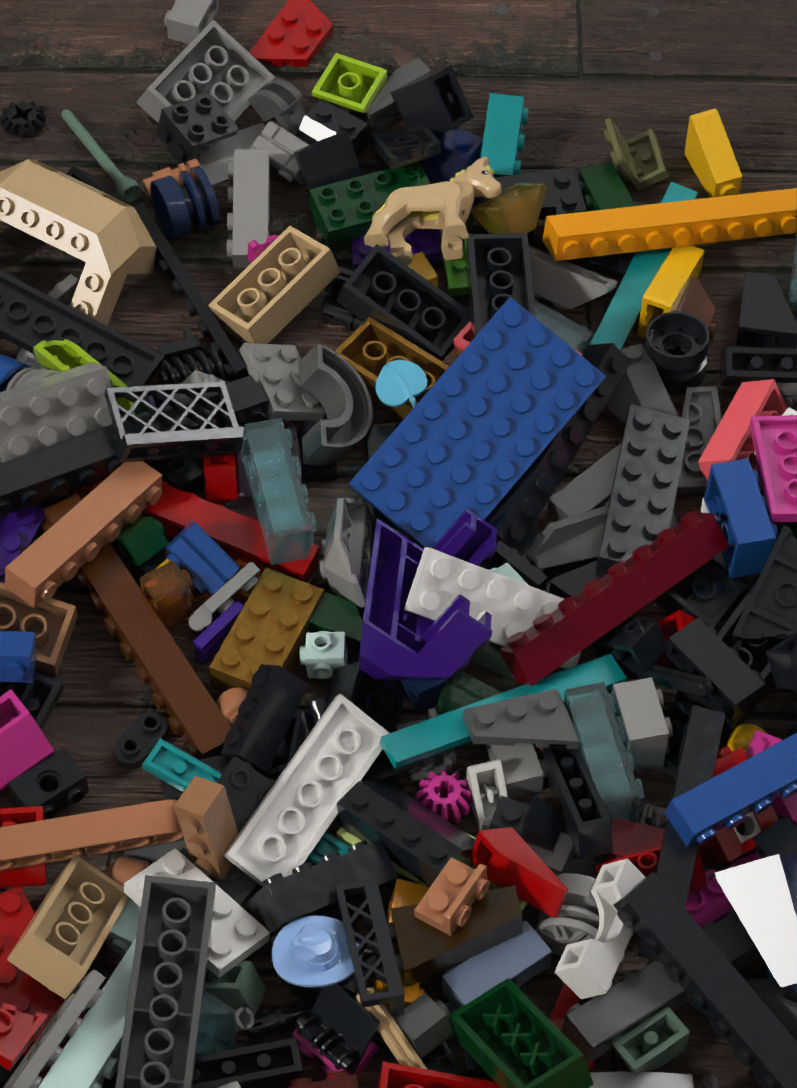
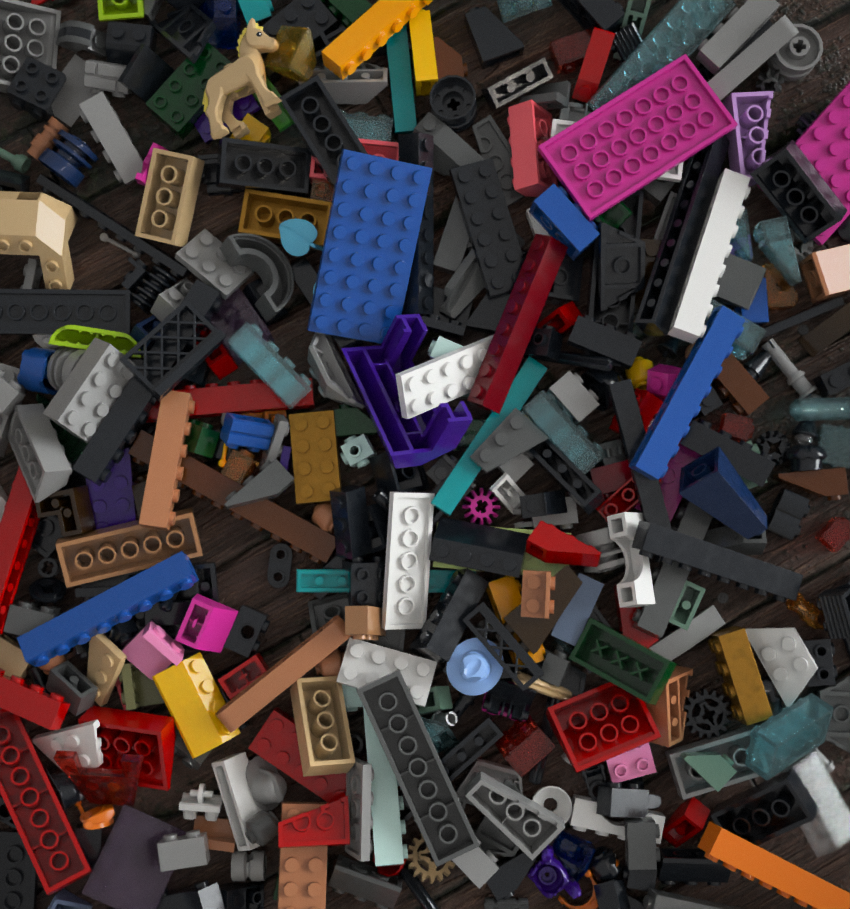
camera: 25 degrees left, 30 degrees up
(171, 304) = (105, 238): none -> light grey hinge
(184, 622) = (266, 485): none -> dark grey slope

